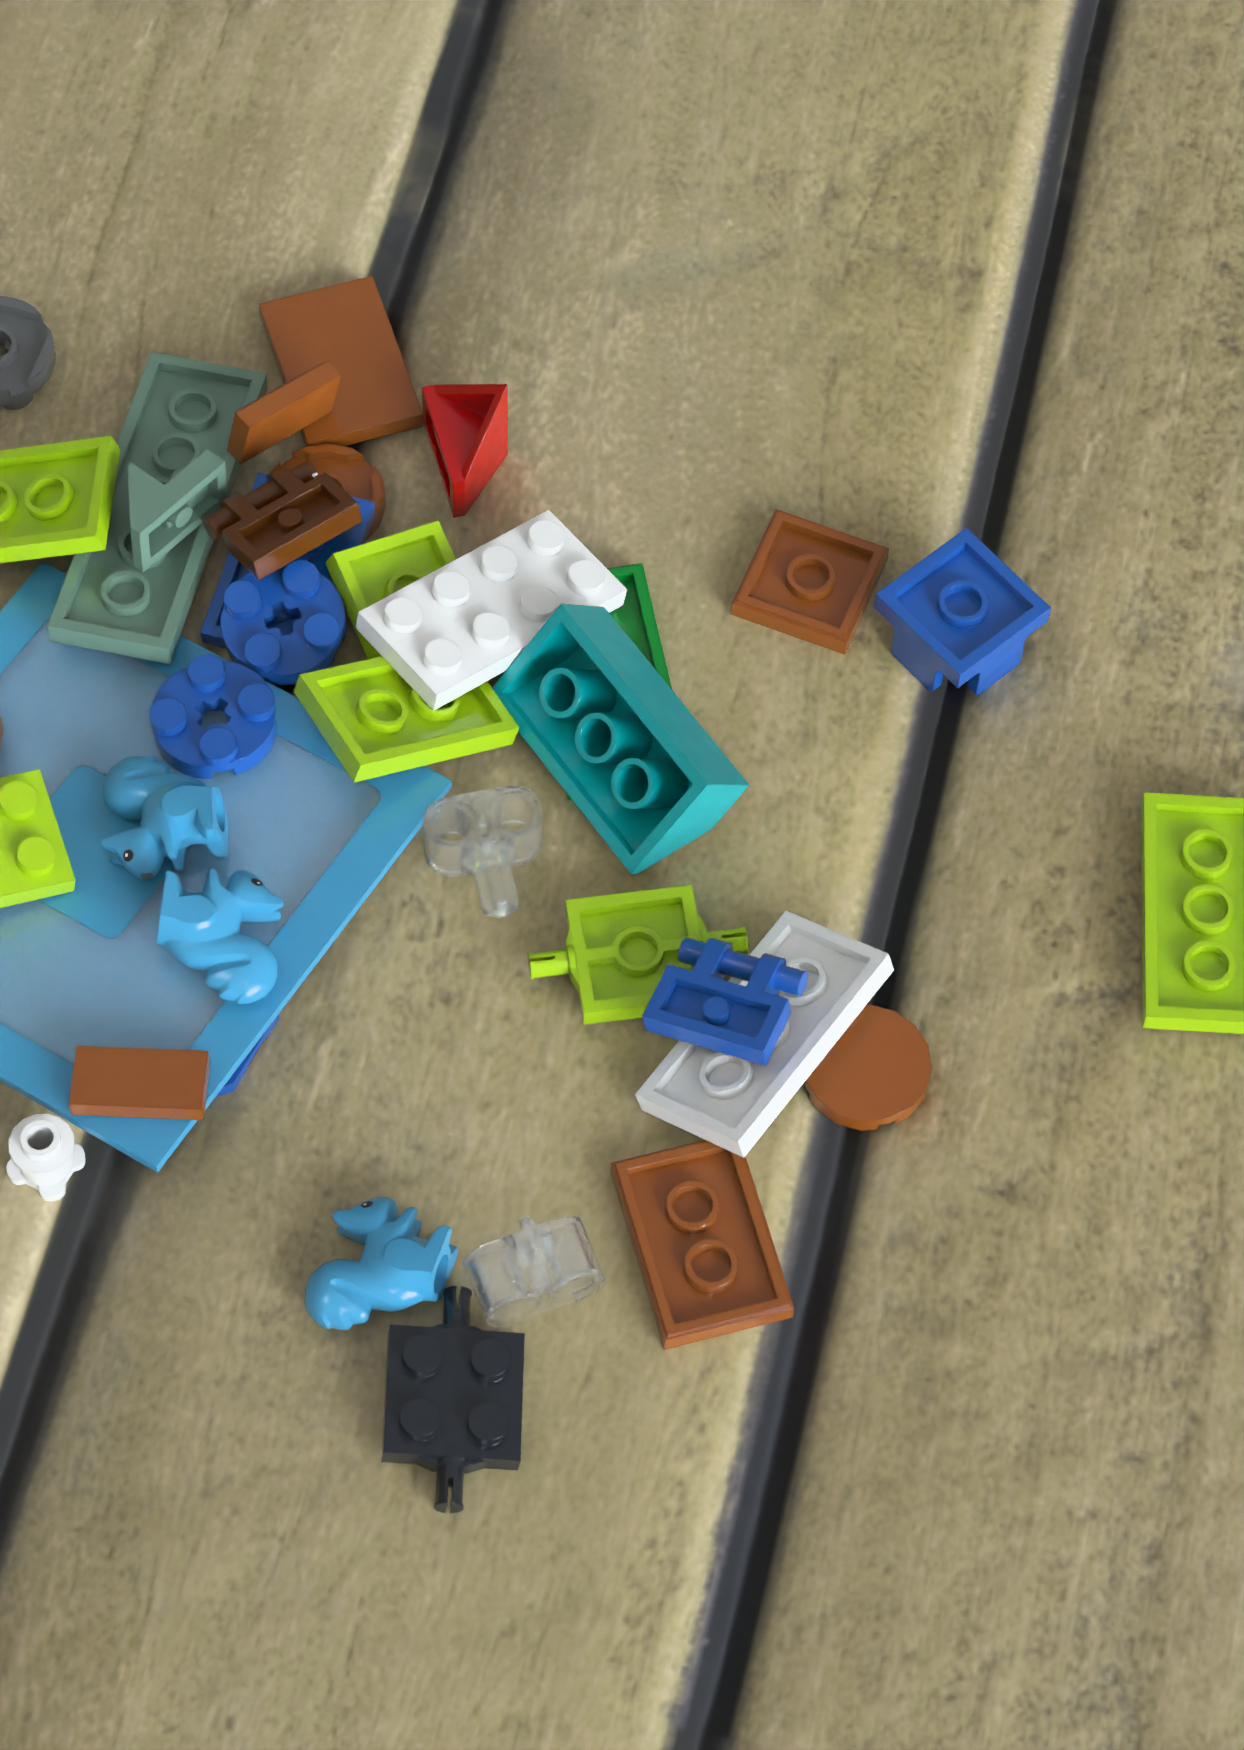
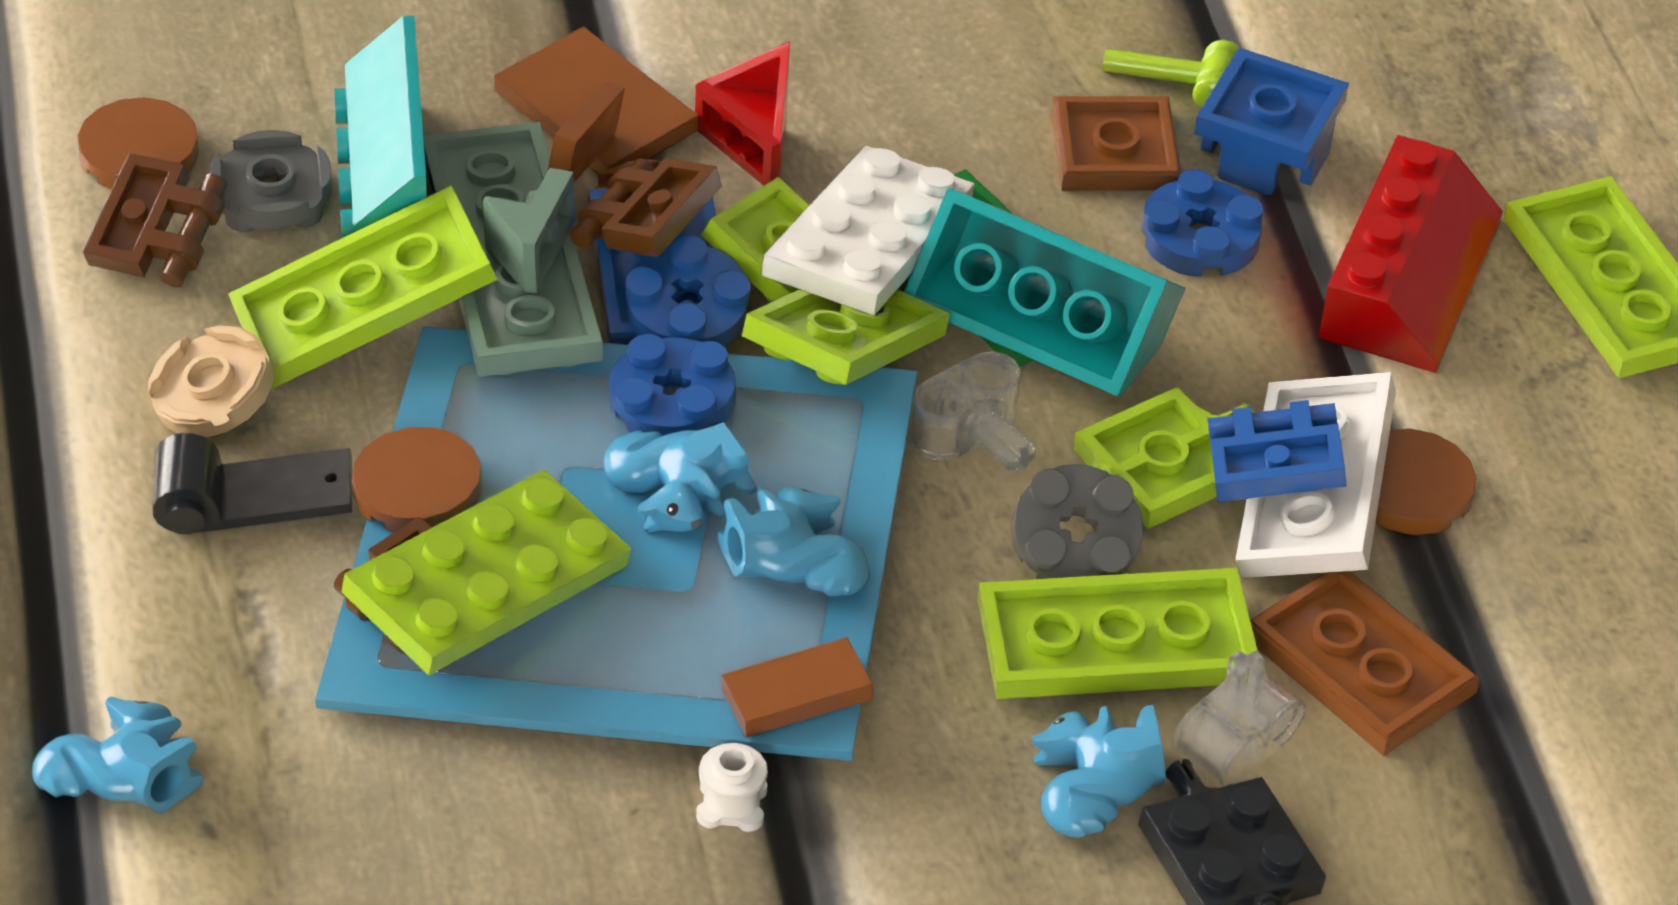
camera: 25 degrees left, 15 degrees down
(107, 349) = (383, 129): none -> slope
(482, 1128) = (1113, 632): none -> lime plate
(490, 970) = (1085, 492): none -> dark grey plate
(843, 675) = (1226, 241): none -> blue plate
(918, 519) = (1202, 74): none -> lime piece
(1013, 819) = (1411, 257): none -> red slope

